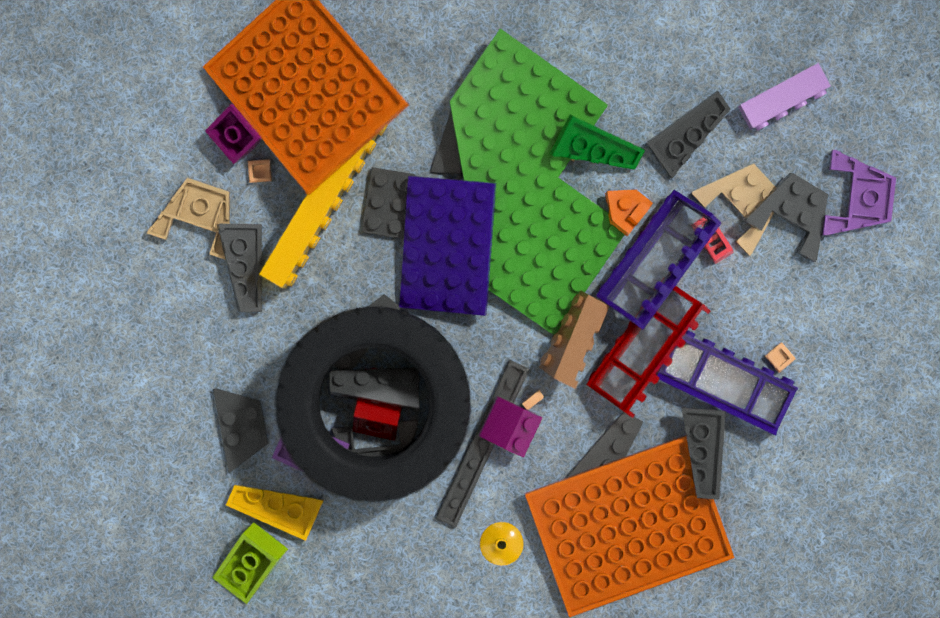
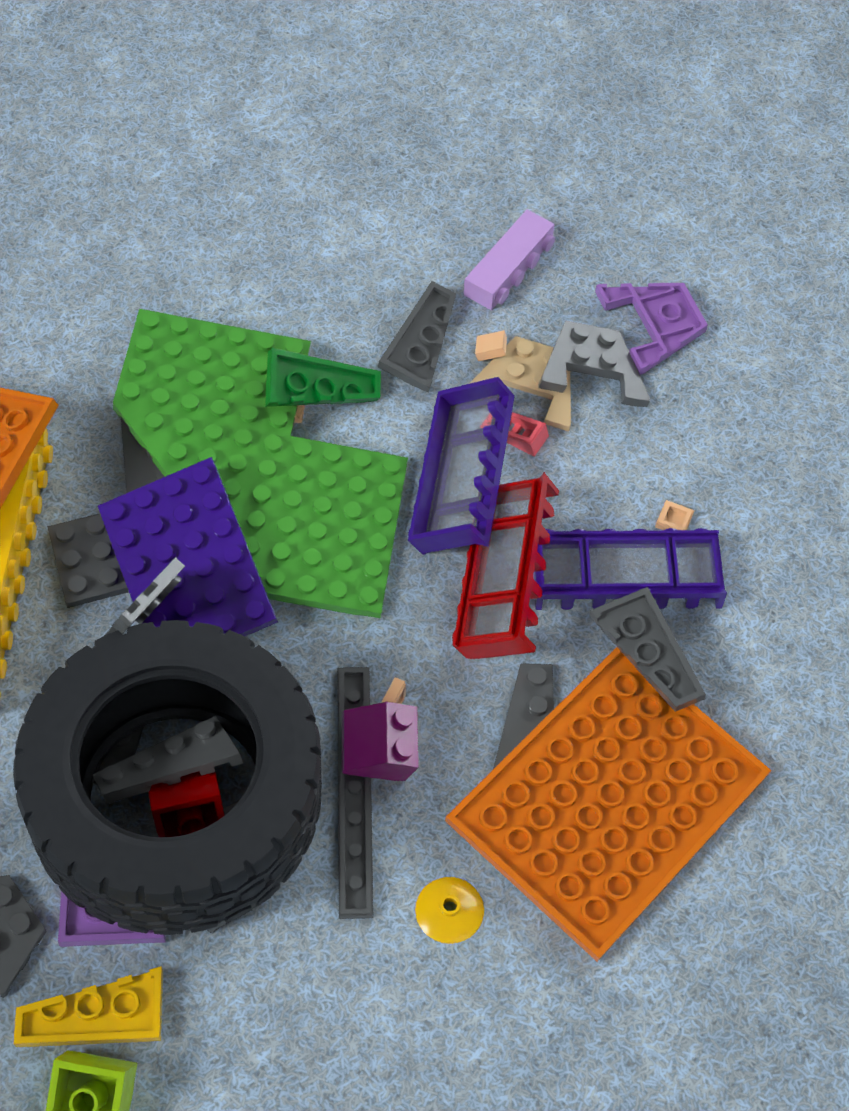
camera: 25 degrees left, 30 degrees down
(407, 277) = (150, 598): none -> dark grey wing
(574, 339) = (407, 600): medium nougat wedge -> none
(626, 208) = (392, 437): orange plate -> none
(731, 164) = (491, 345): none -> light nougat tile

